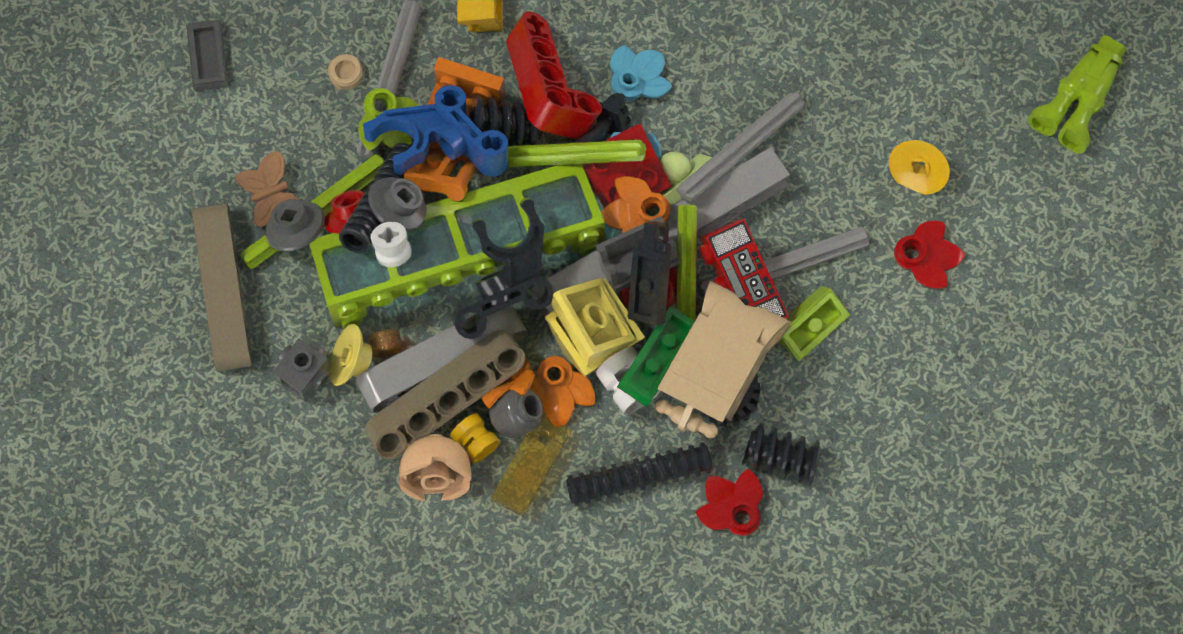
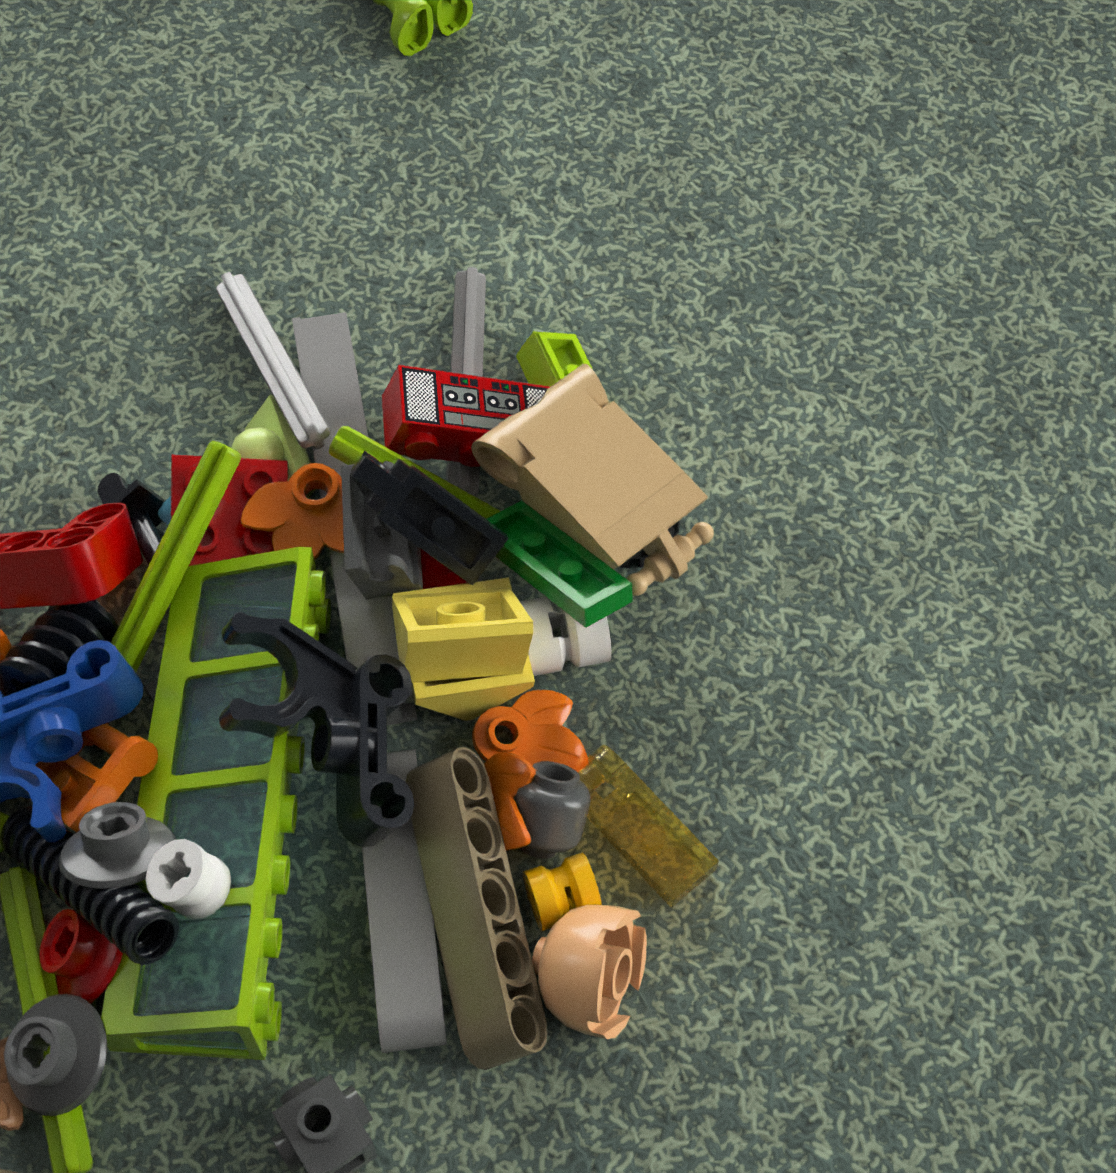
camera: 75 degrees left, 10 degrees down
(349, 356) = (333, 1039): light yellow piece -> none
(385, 343) = (336, 978): clear orange bush -> none
(639, 474) = (712, 676): black piece -> none
(640, 70) = (78, 460): medium azure plate -> none
(729, 500) = (793, 571): red plate -> none
(782, 453) = (756, 473): black piece -> none
(920, 178) = (424, 171): yellow piece -> none
(934, 254) = (531, 211): red plate -> none

